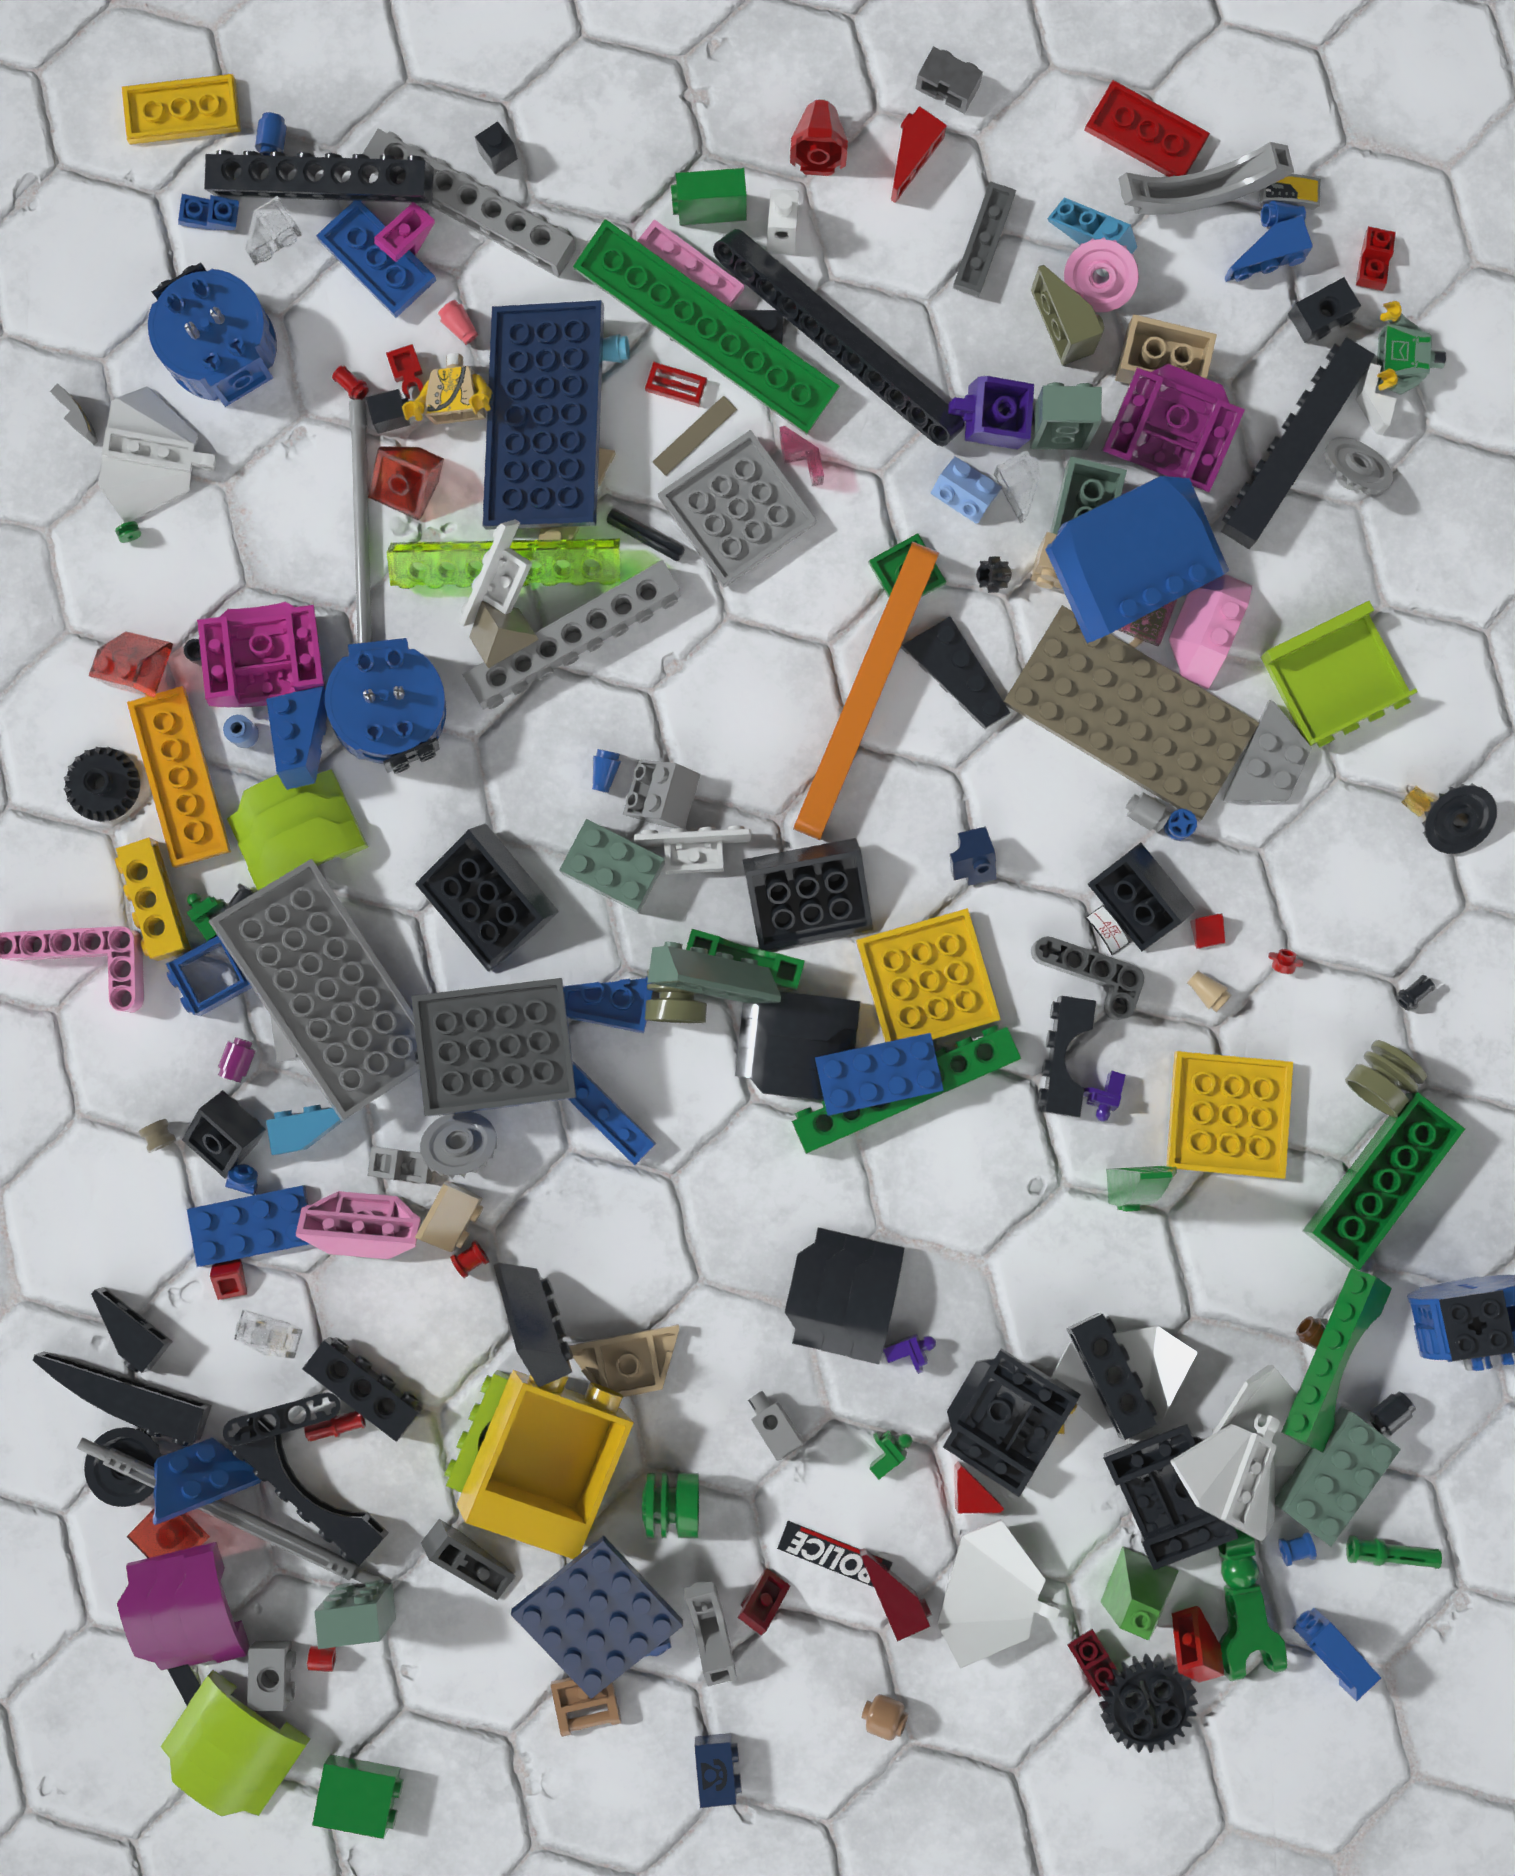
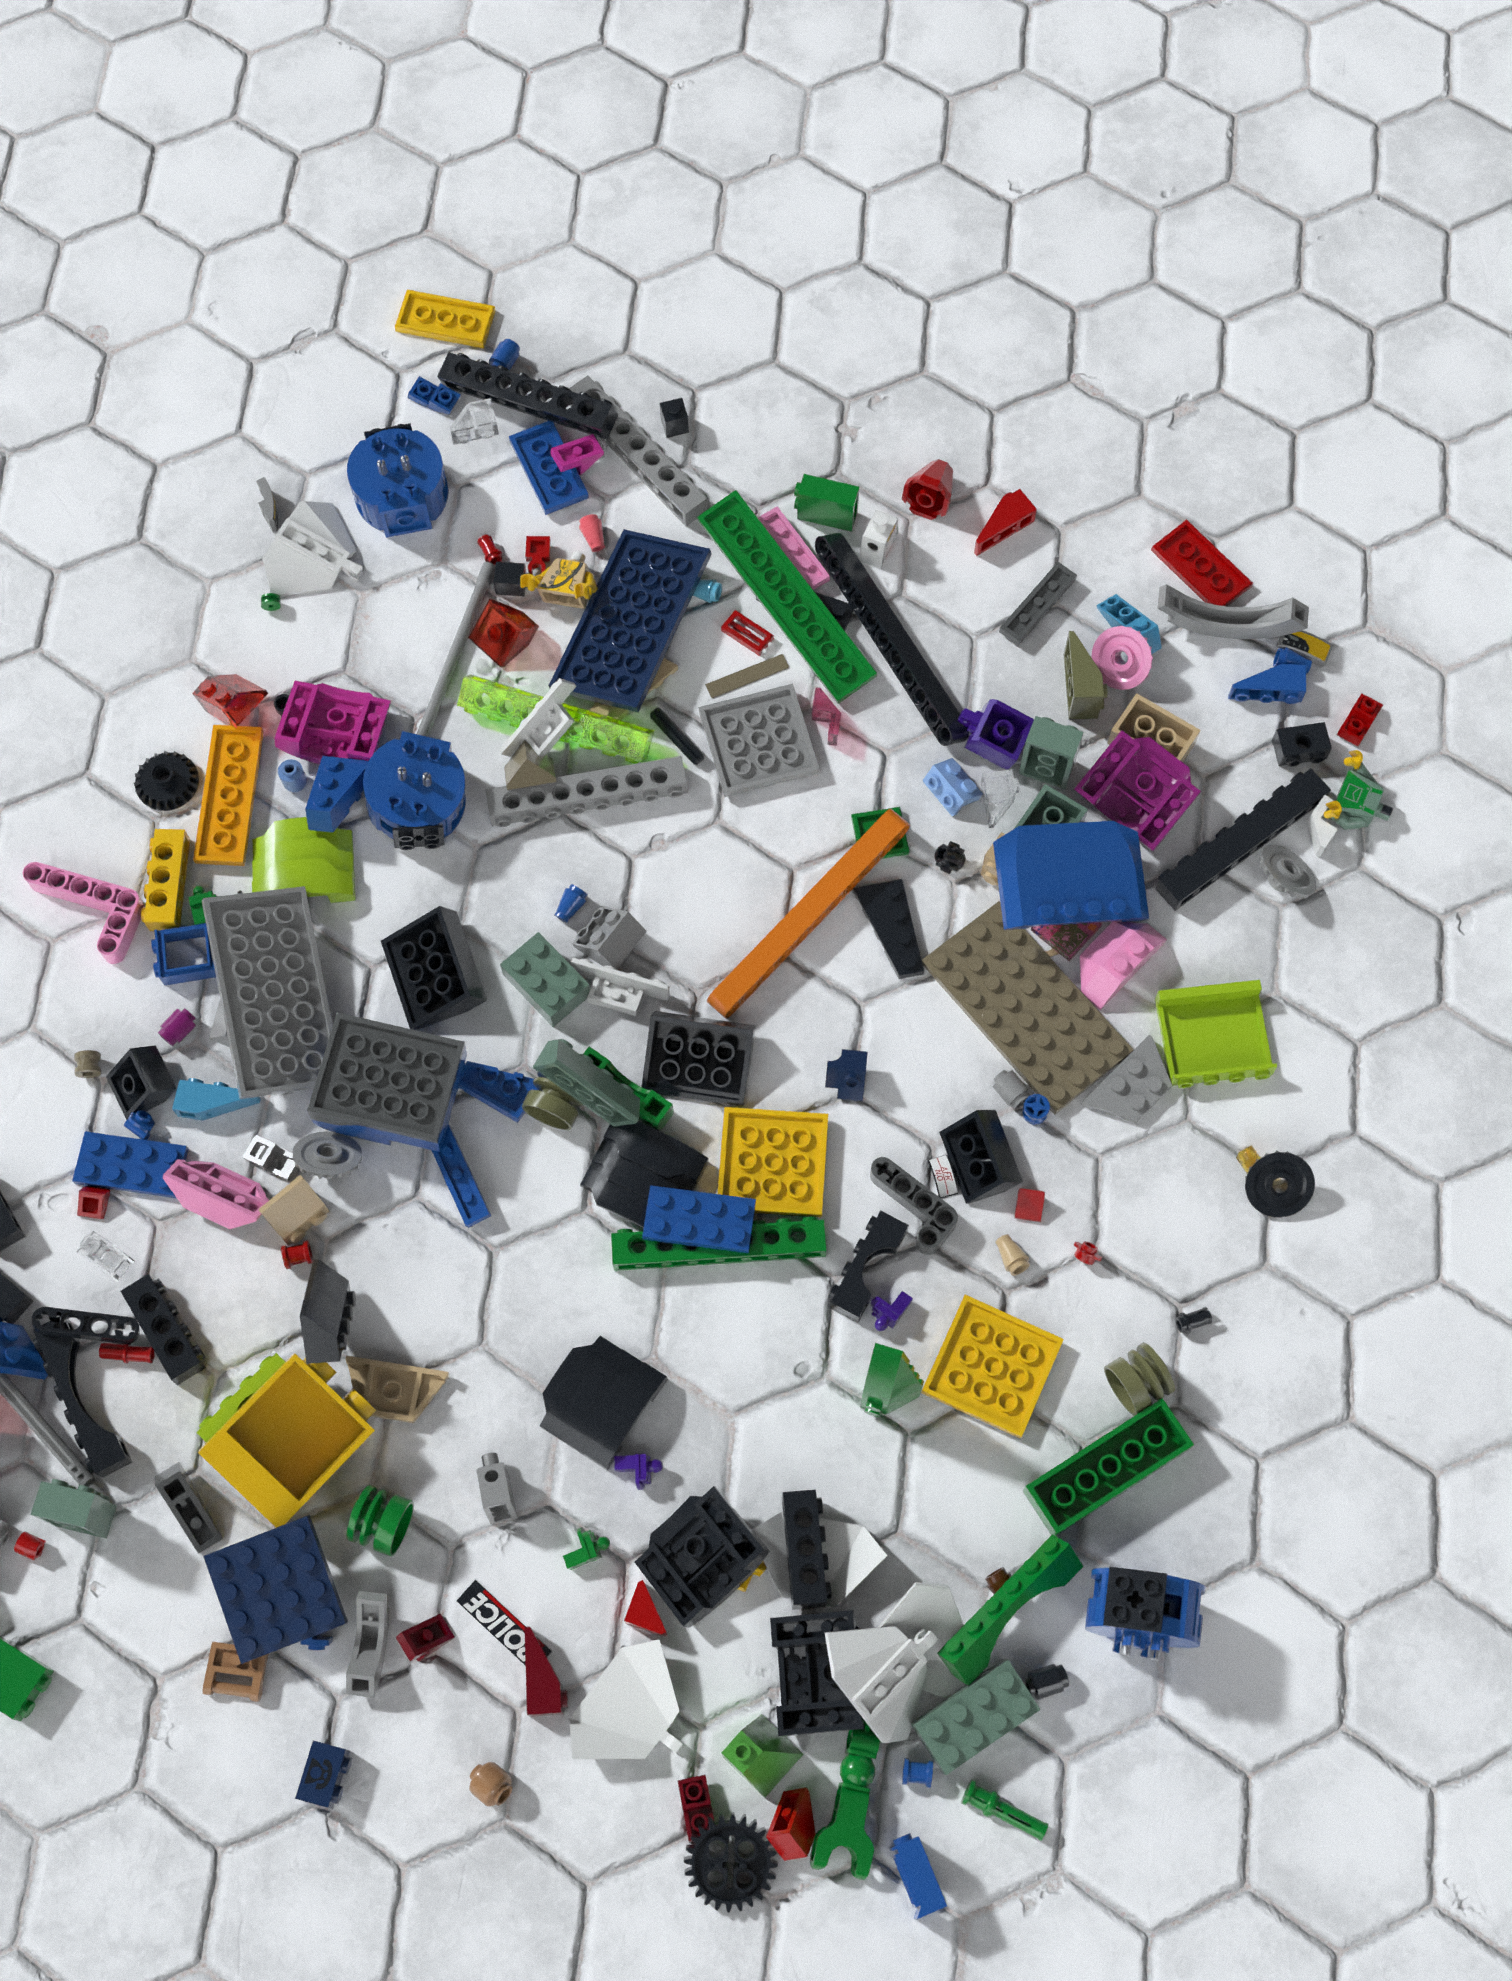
camera: 25 degrees right, 15 degrees down
(949, 78) = (1053, 477): flat silver brick -> none

